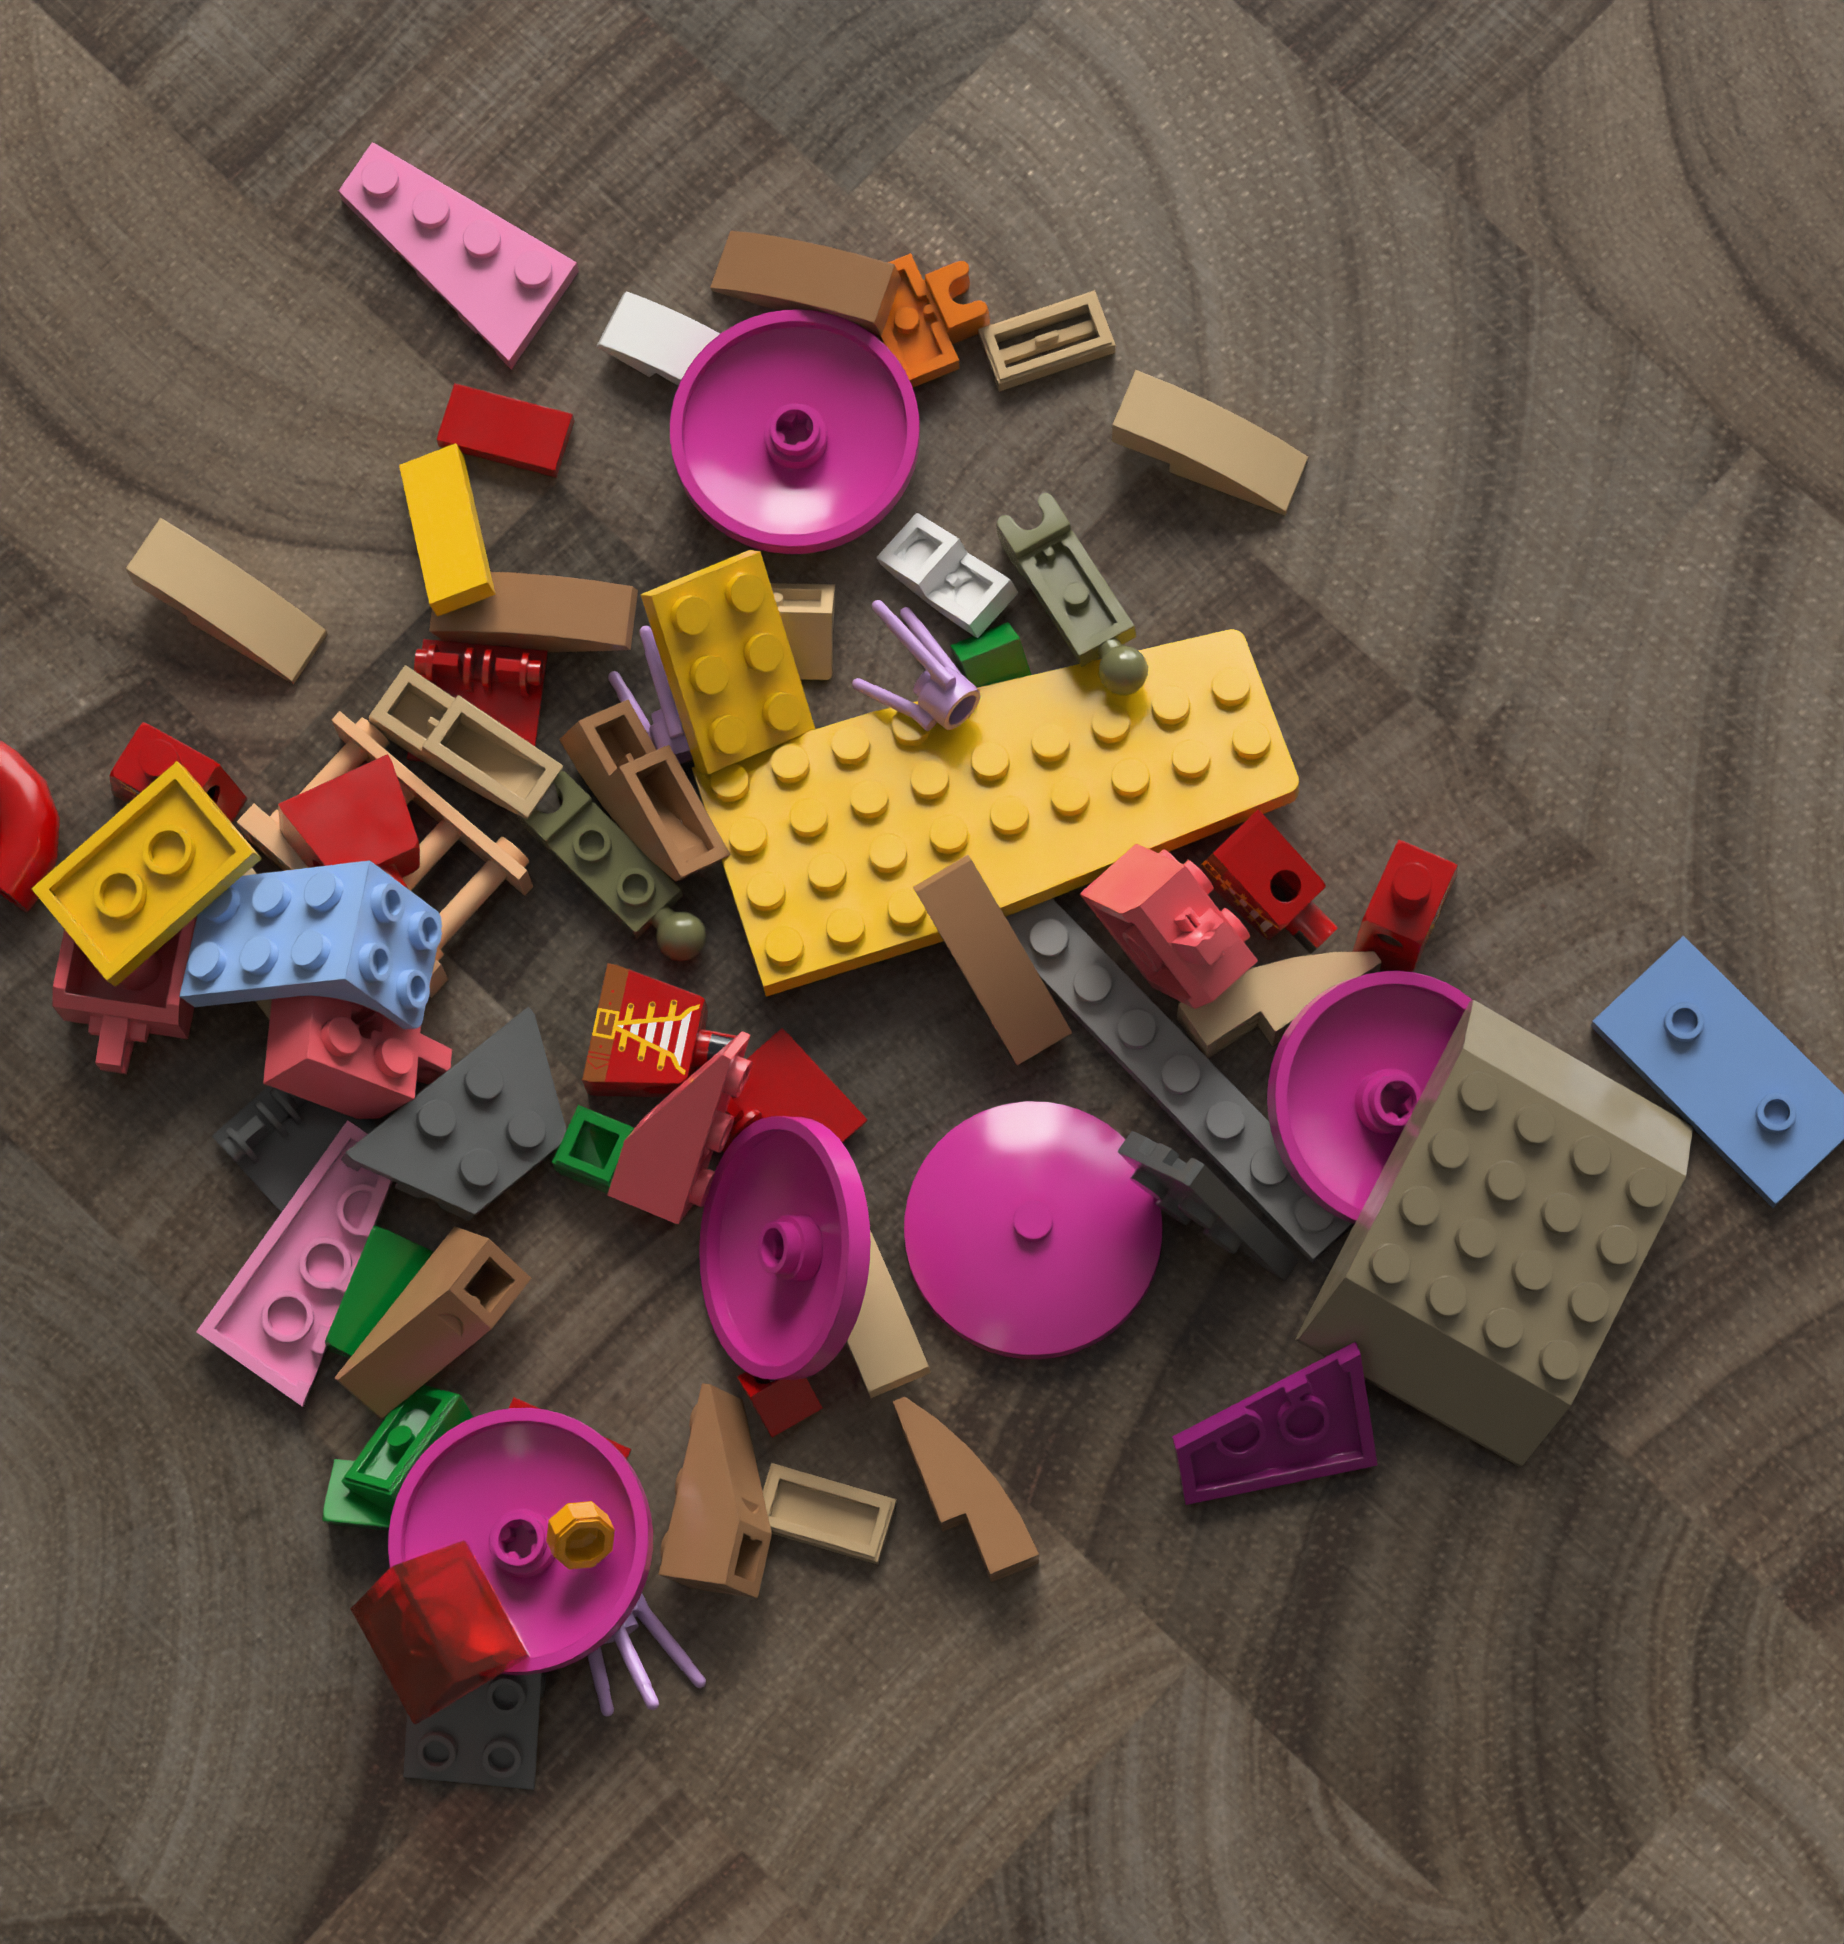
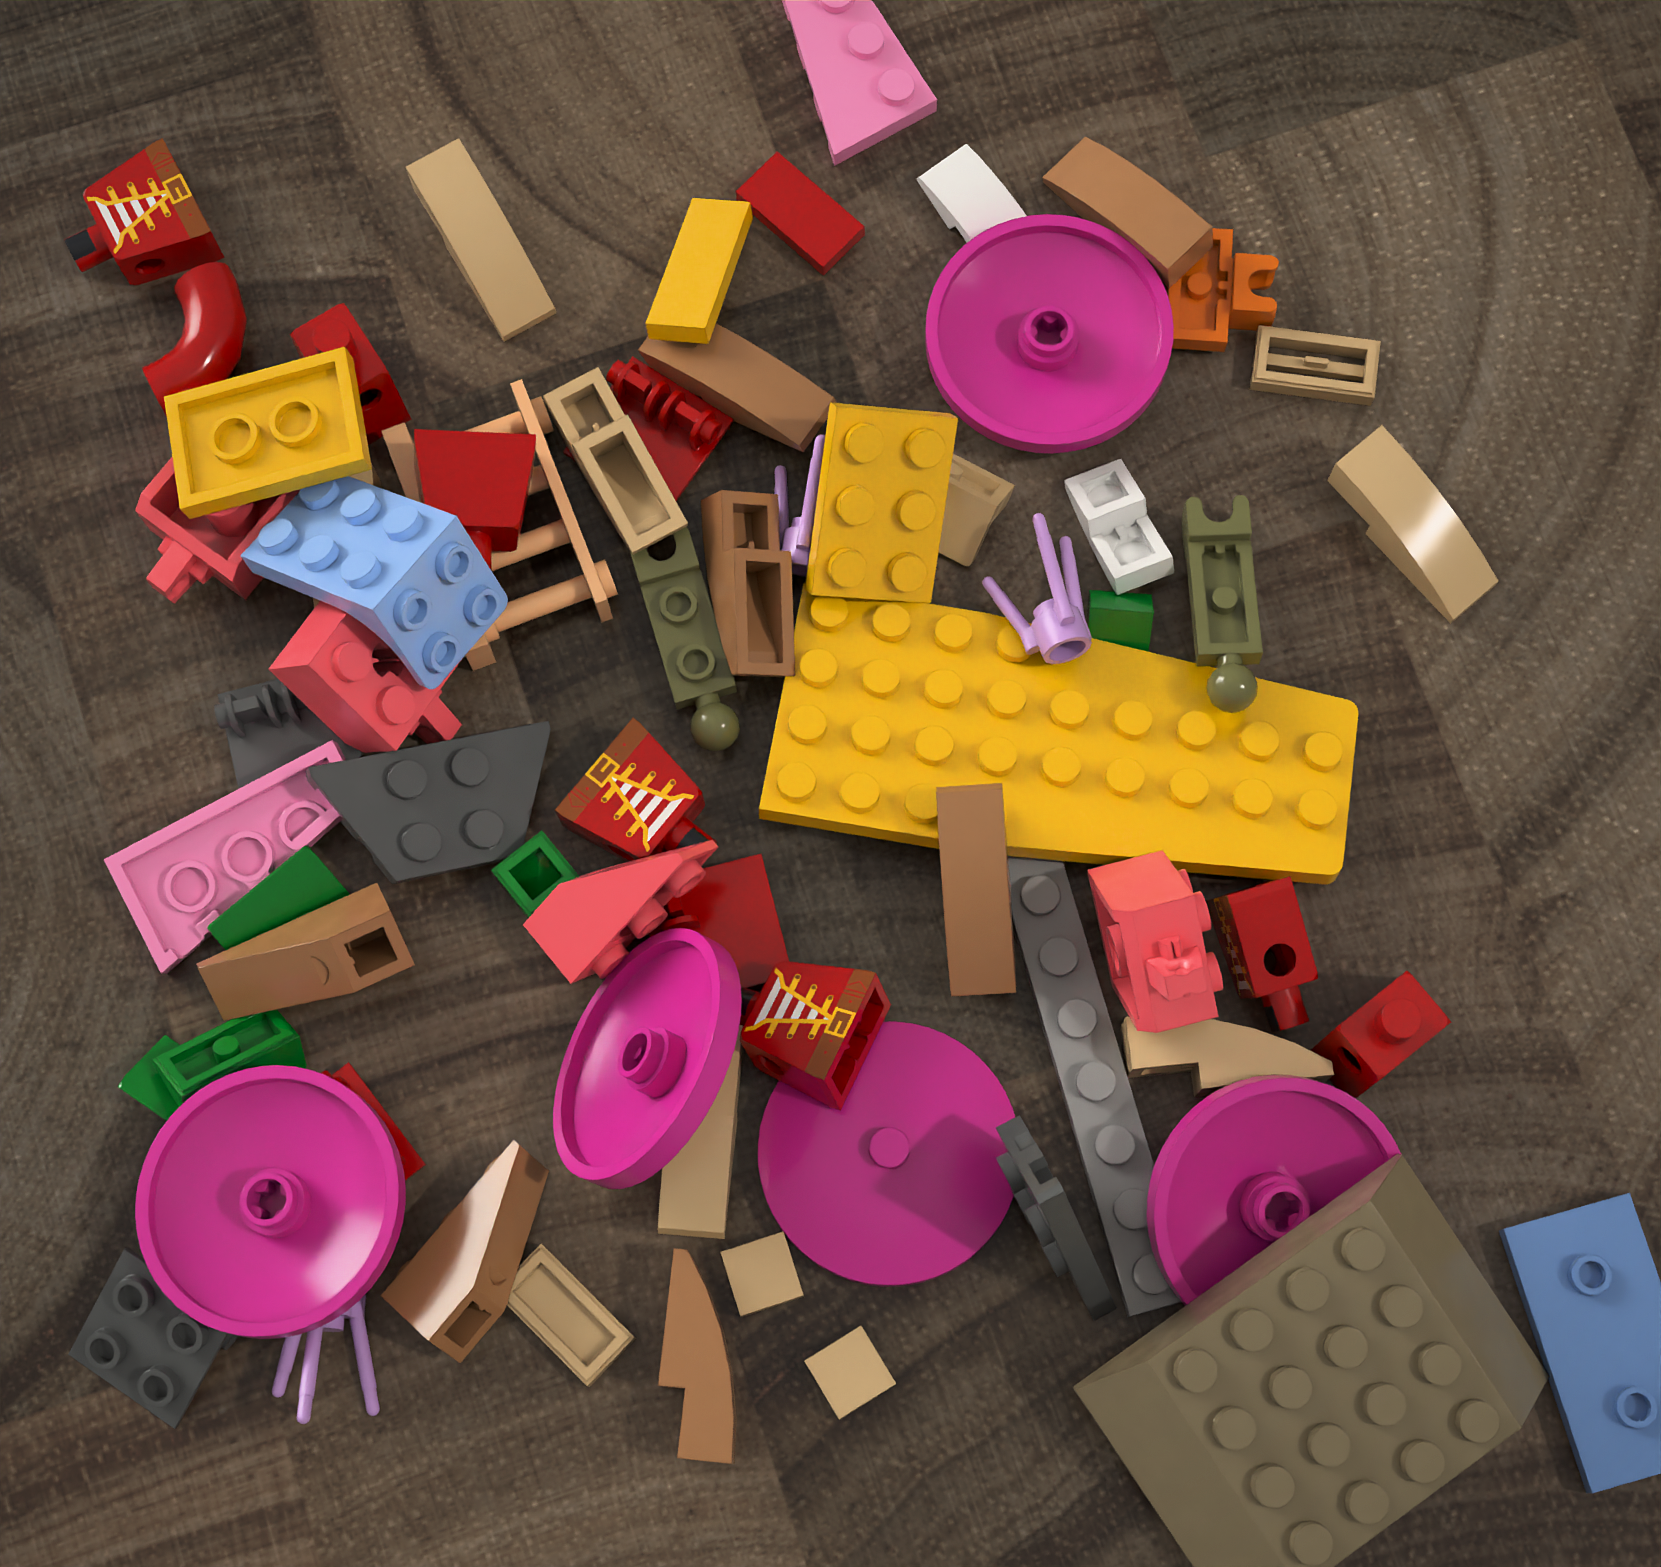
camera: 25 degrees right, 0 degrees up
(438, 1629) = (151, 1245): clear red slope -> none
(580, 1535) = (319, 1227): light orange tile -> none
(780, 1401) = (575, 1197): red piece -> none
(915, 1150) = (813, 1026): none -> red torso
(978, 1389) = (762, 1274): none -> tan tile
(1098, 1432) = (850, 1372): none -> tan tile
(1283, 1434) = (1016, 1468): magenta wing -> none

